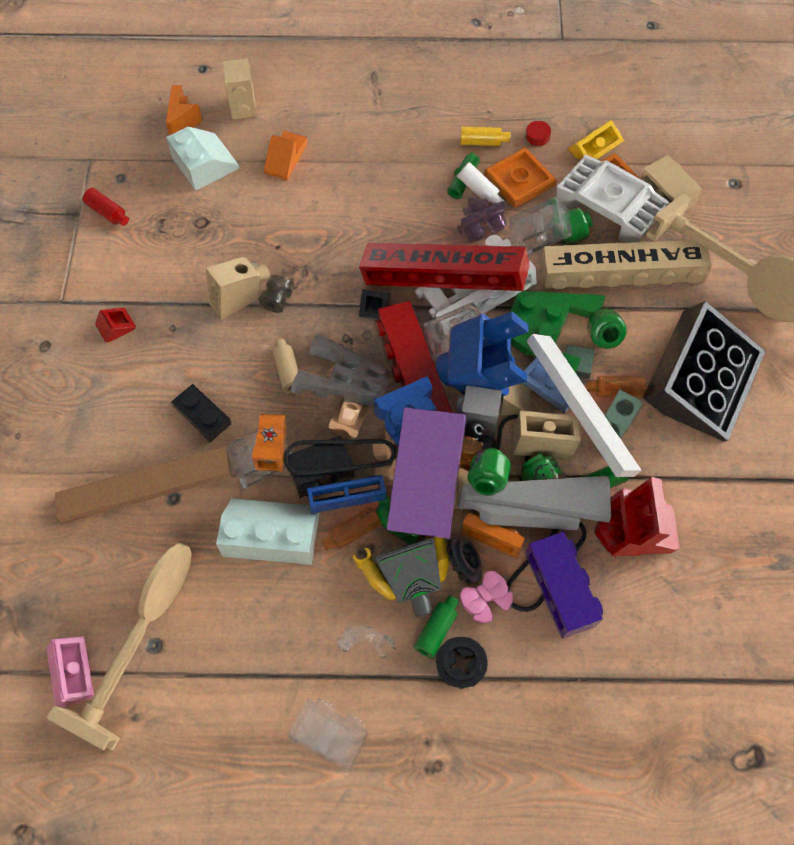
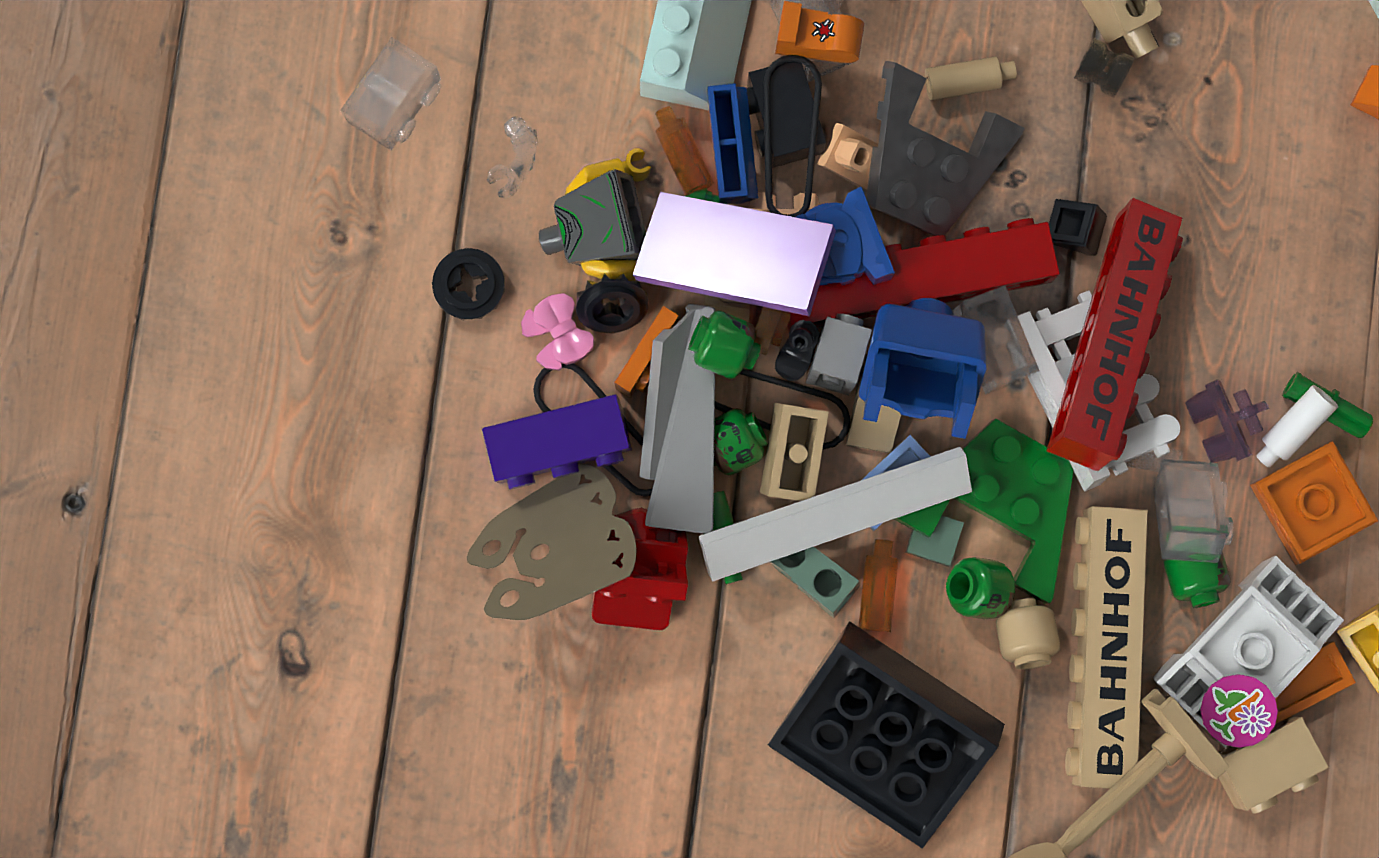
camera: 90 degrees right, 20 degrees up
(437, 627) = (521, 256): green cylinder -> none
(628, 302) = (1028, 634): none -> tan head
(628, 555) = (577, 541): none -> dark tan piece
(649, 193) = (1239, 710): none -> sticker

